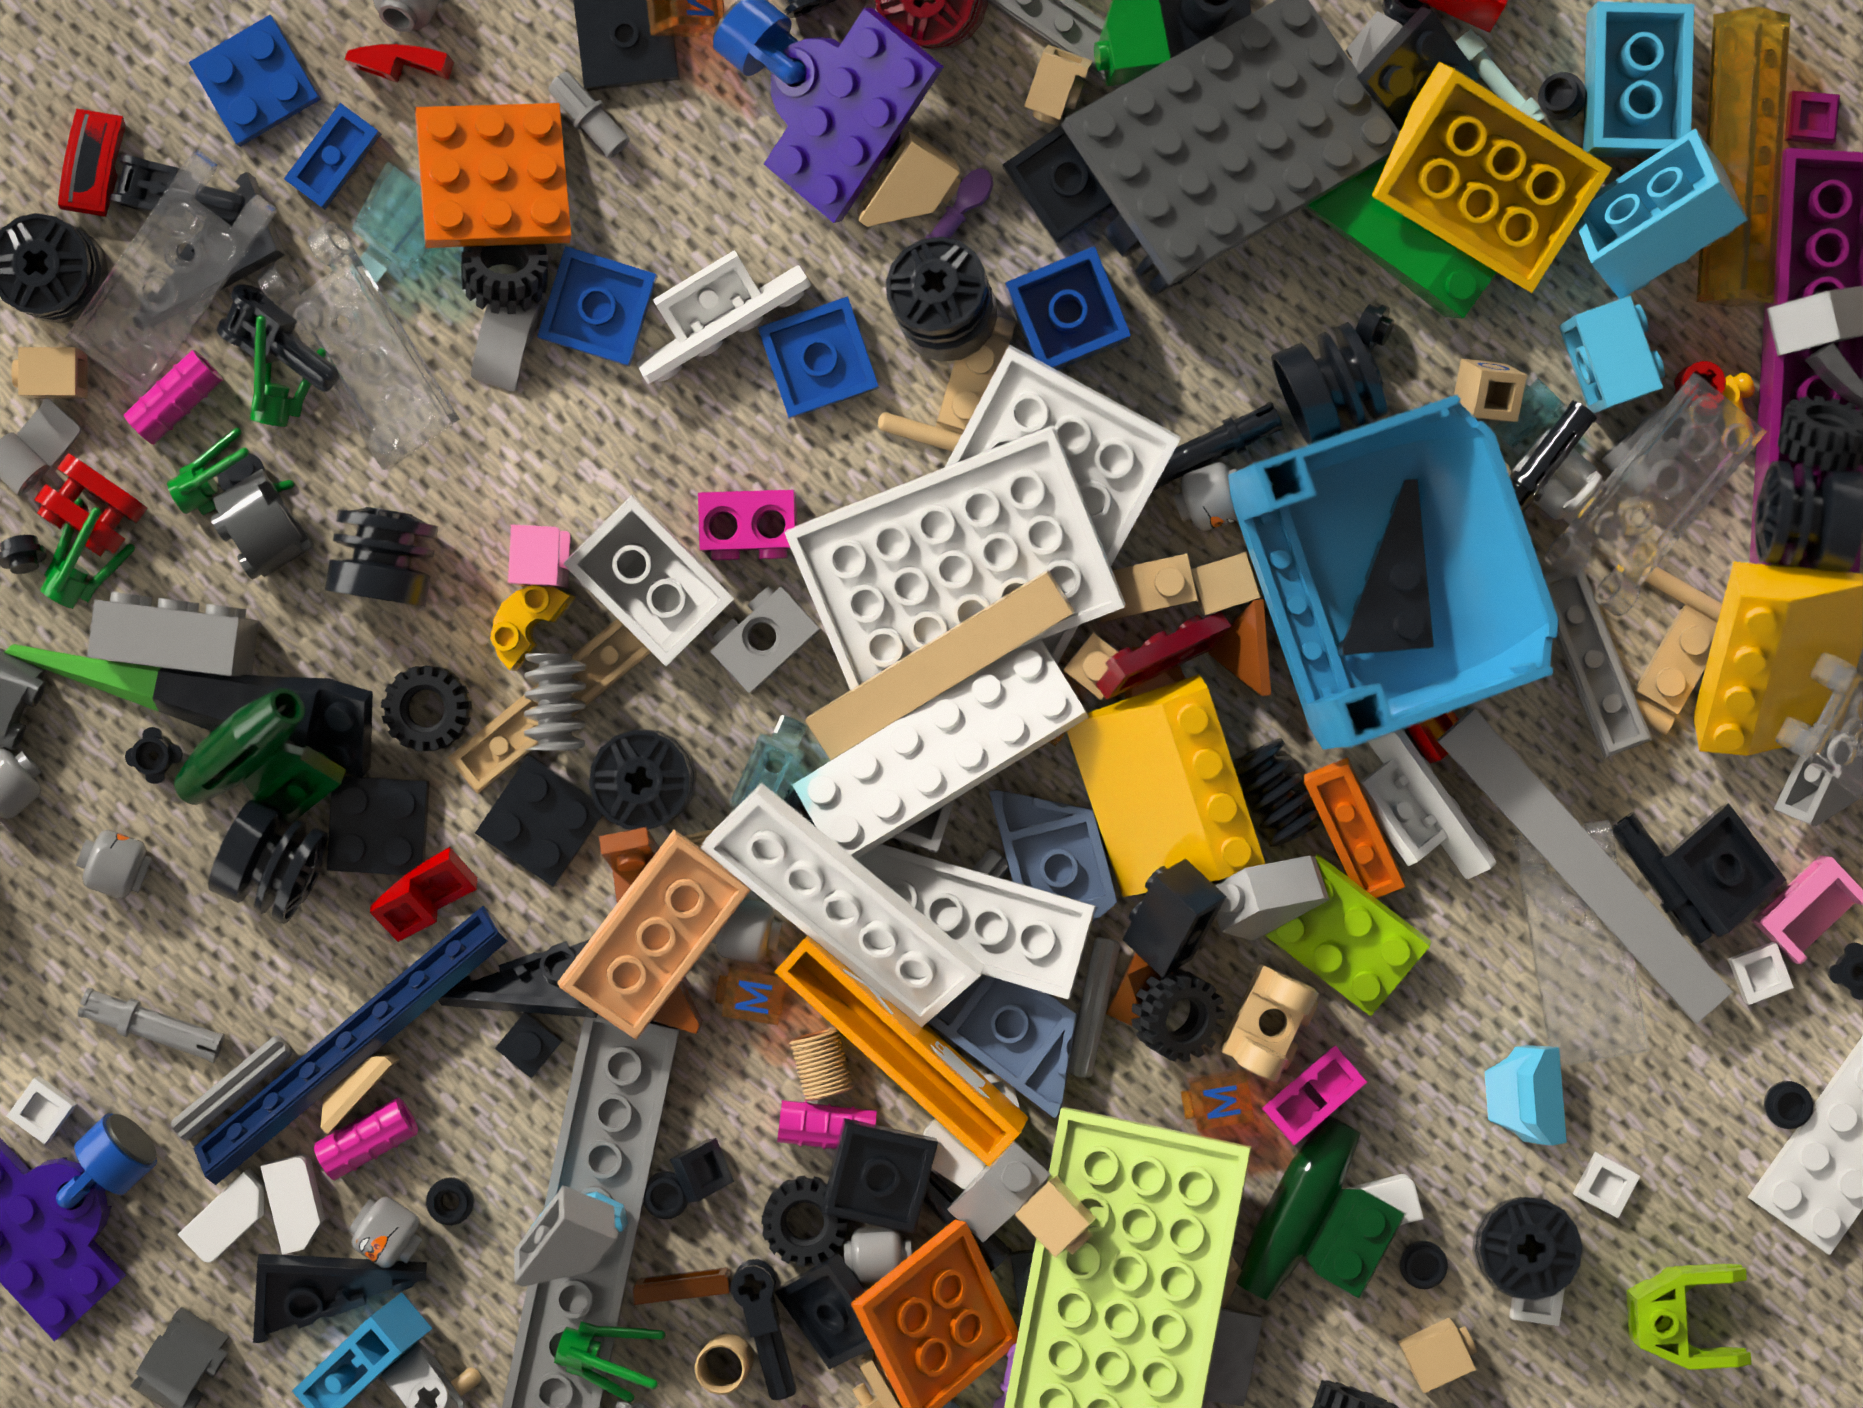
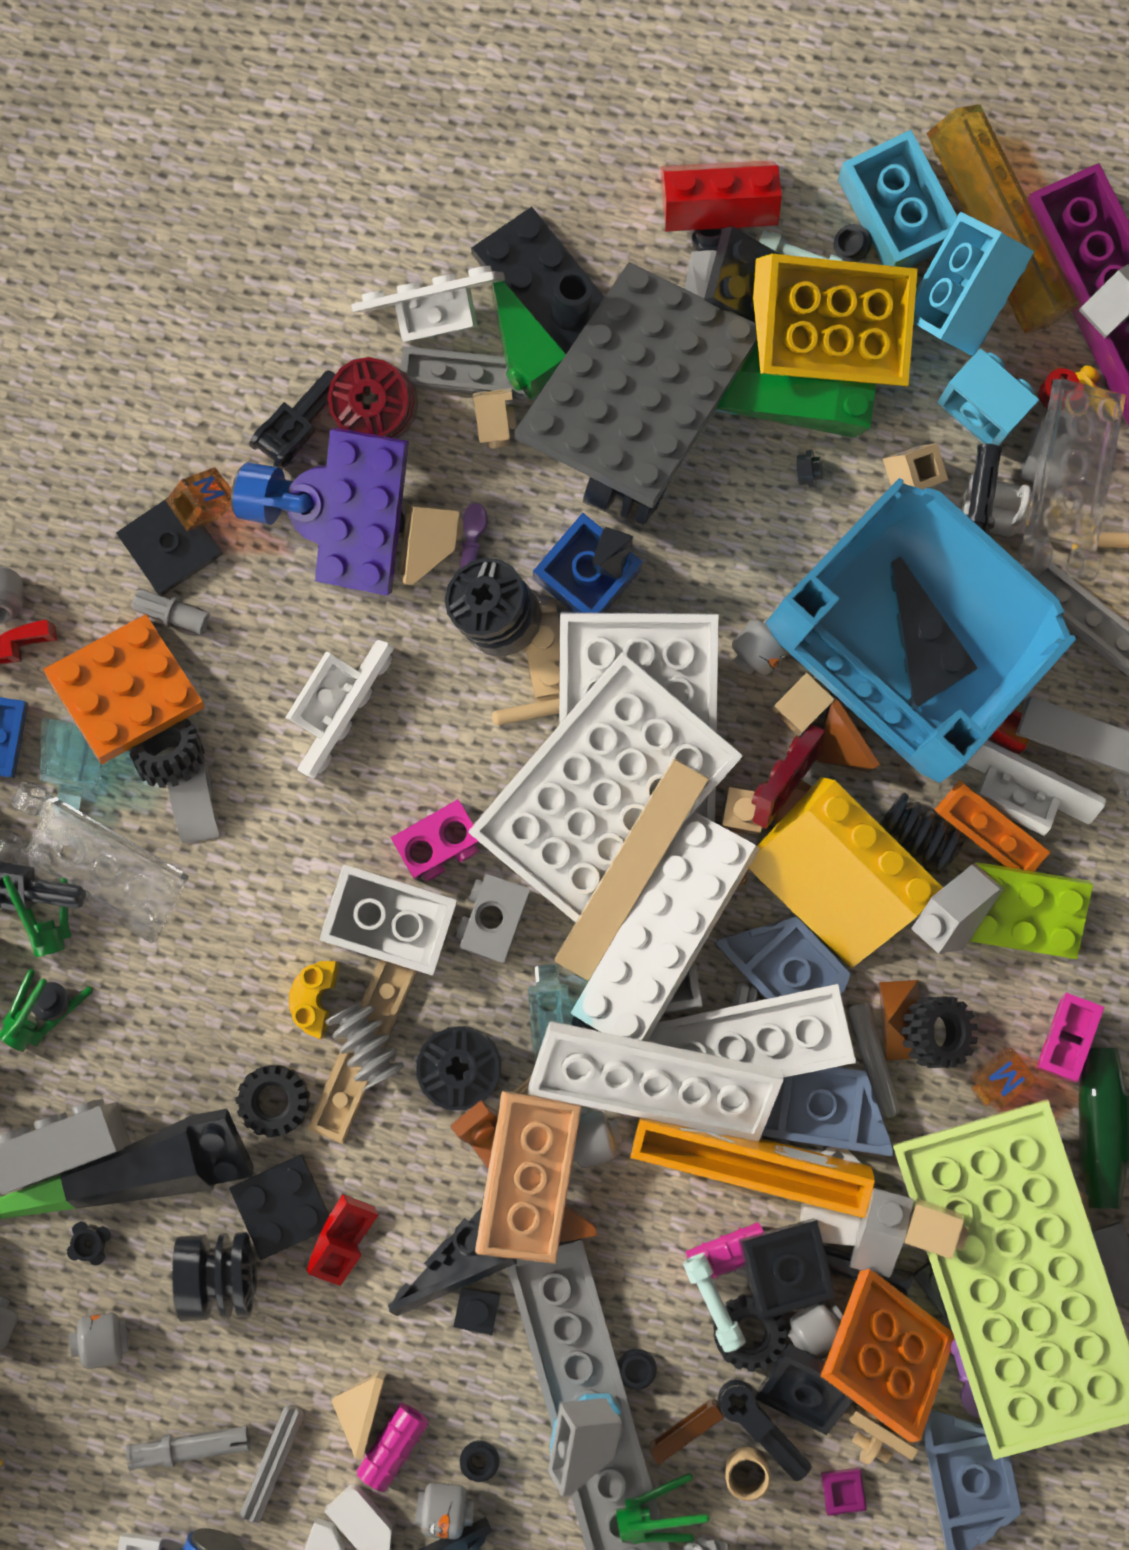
camera: 25 degrees left, 5 degrees down
(254, 752) = (163, 1200): dark green plate -> none
(259, 525) = (82, 1031): dark grey cylinder -> none
(349, 1045) = (343, 1384): dark blue tile -> none
(381, 556) = (183, 1006): black wheel -> none
(538, 556) = (298, 944): bright pink panel -> none
(540, 820) = (399, 1139): black plate -> none
(597, 306) = (247, 743): blue plate -> none
(702, 1170) = (654, 1336): black plate -> none
(751, 995) = (621, 1184): clear orange brick -> none
(781, 1210) = (728, 1332): none -> light aqua bar
(818, 357) = (426, 696): blue plate -> none
(821, 1064) = (700, 1208): tan piece -> none
(1058, 185) = (534, 484): black plate -> none
(1101, 309) = (612, 553): none -> black slope
(1154, 586) = (755, 731): tan slope -> none
(1173, 916) = (898, 961): black brick -> none
(1220, 442) = (747, 603): black pin -> none
(1261, 1051) = (994, 1022): tan brick -> none
(1330, 384) = (805, 518): black wheel -> none
(1537, 410) = (957, 466): clear light blue cone -> none
(1812, 117) = (1033, 168): magenta tile -> none

